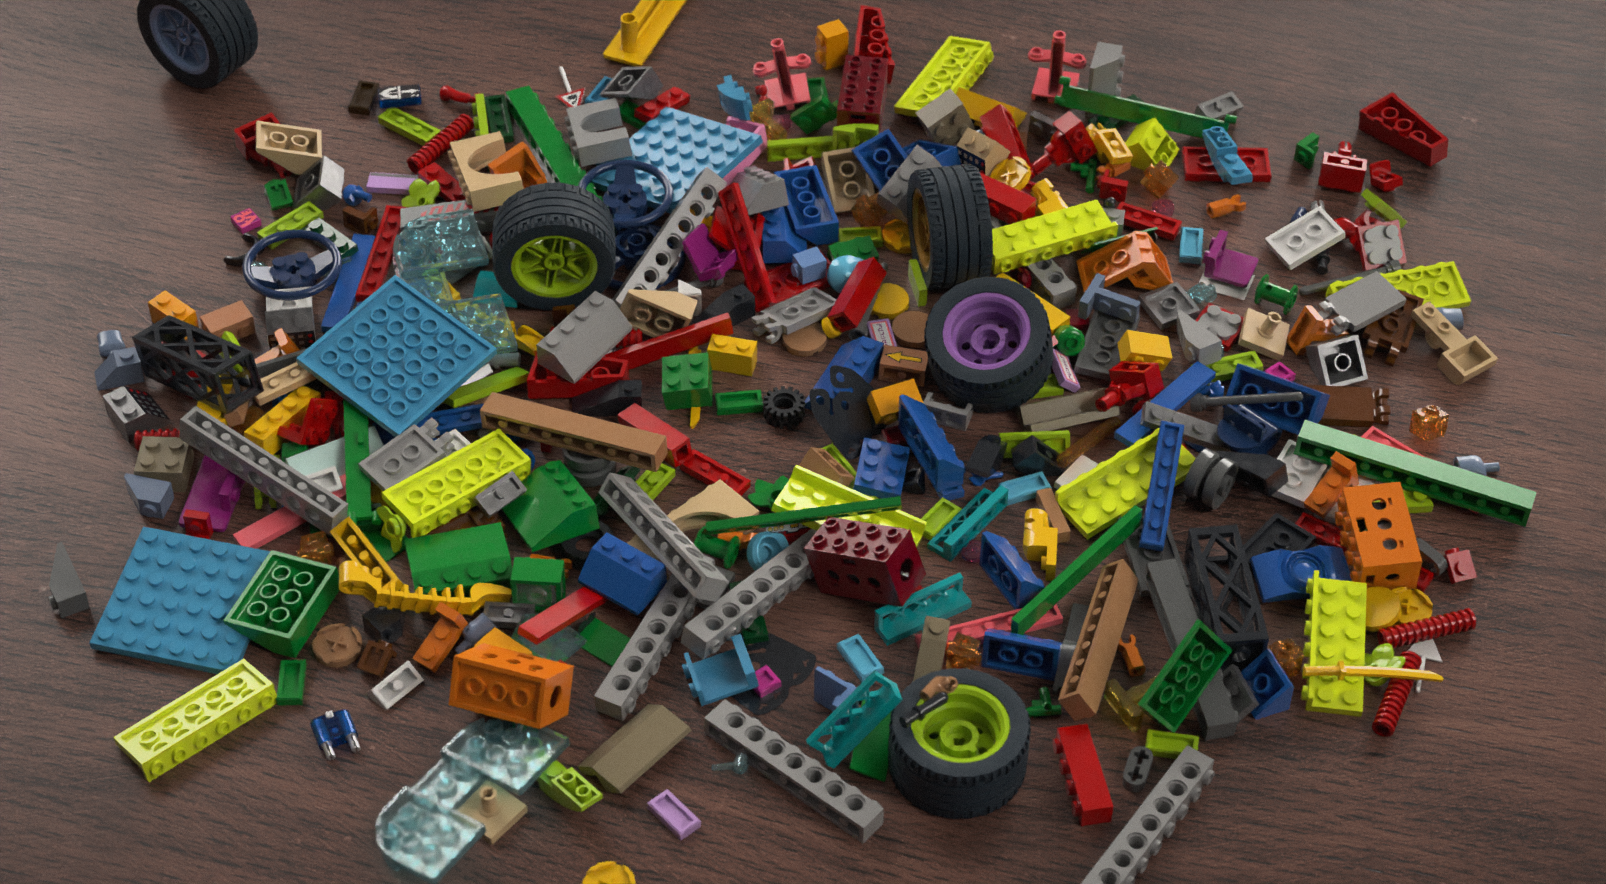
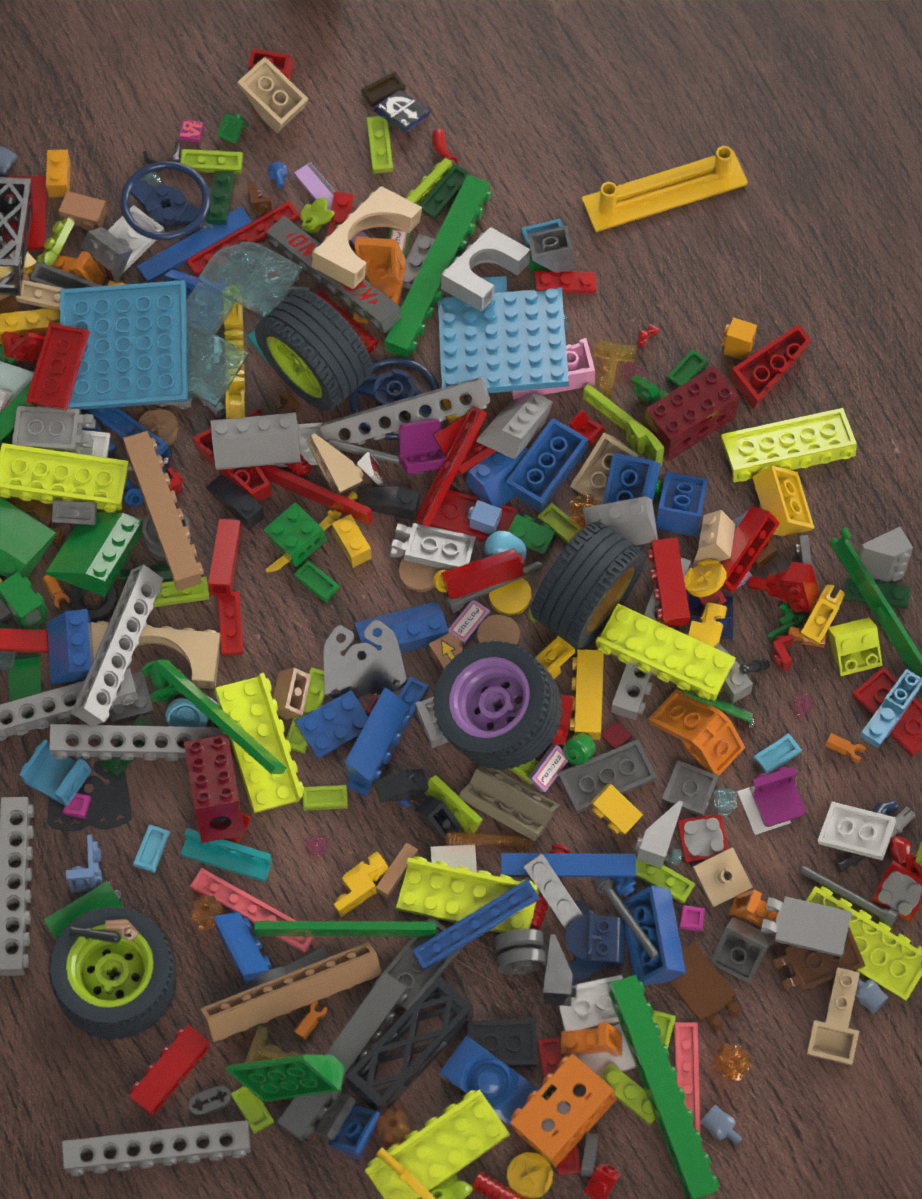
camera: 50 degrees right, 20 degrees up
(320, 185) = (264, 145): flat silver slope -> none
(362, 407) = (57, 366): none -> red tile
(440, 143) = (381, 178): red piece -> none
(485, 386) = (173, 416): lime tile -> none
(572, 98) = (519, 217): piece -> none
(626, 197) = (428, 340): dark blue piece -> none
(734, 99) = (607, 323): dark azure slope -> none
(766, 492) = (248, 669): green plate -> none
(784, 398) = (331, 603): black tyre -> none
(787, 88) = (664, 348): coral piece -> none
(860, 720) = (69, 894): teal fence -> none
(885, 401) = (399, 682): light orange brick -> none
(914, 481) = (343, 752): black slope -> none
(931, 646) = (182, 894): dark tan slope -> none
(945, 119) = (727, 485): dark tan brick -> none
(969, 527) = (339, 825): teal fence -> none
(1008, 570) = (310, 885): blue slope -> none
(1022, 276) = (614, 669): dark red plate -> none
(1025, 487) = (408, 831): medium azure tile -> none
(1039, 706) = (208, 996): green hose -> none
(1048, 79) = (865, 519): coral piece -> none
(1107, 301) = (636, 733): sand blue bracket -> none
(1130, 381) = (565, 827): red brick -> none
(1145, 219) = (770, 704): red plate -> none
(1158, 179) = (826, 685): clear orange brick -> none
(1276, 294) = (771, 856): green hose -> none
(1382, 608) = (505, 1157): yellow tile -> none

